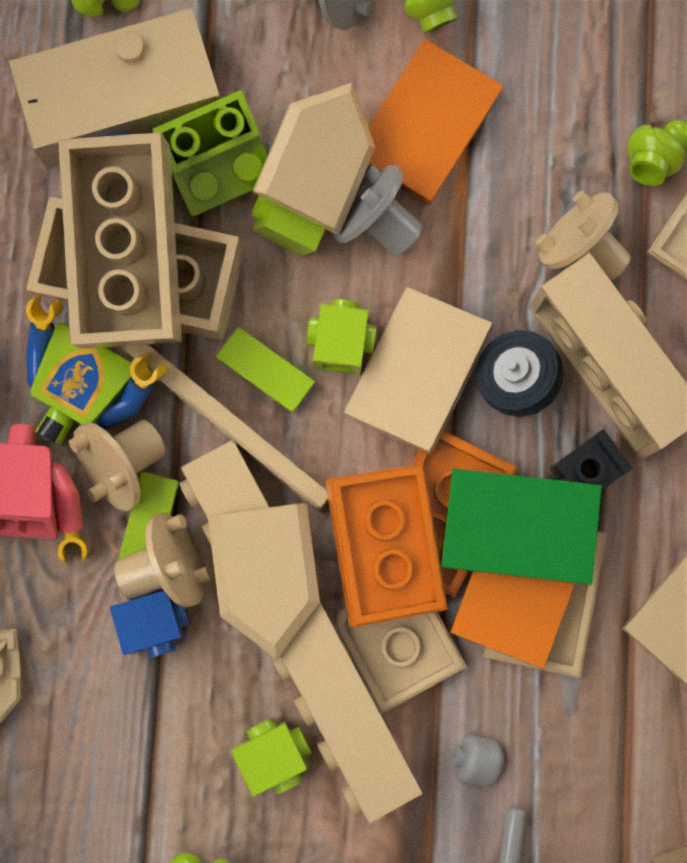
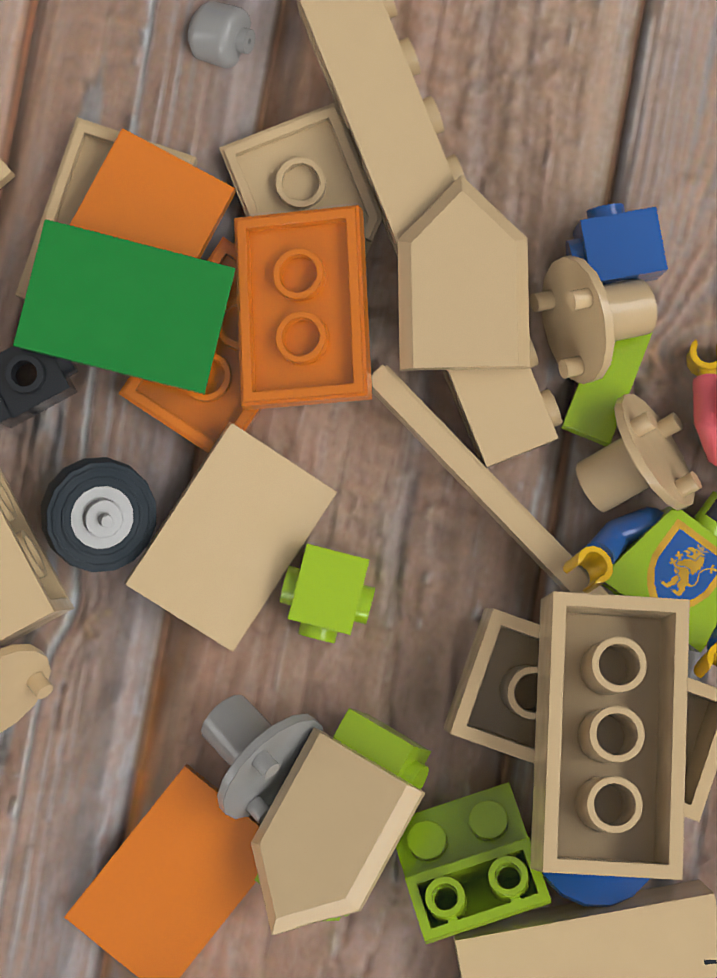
camera: 175 degrees left, 5 degrees up
(265, 369) = (433, 563): lime piece -> none
(272, 757) = (479, 63): lime brick -> none

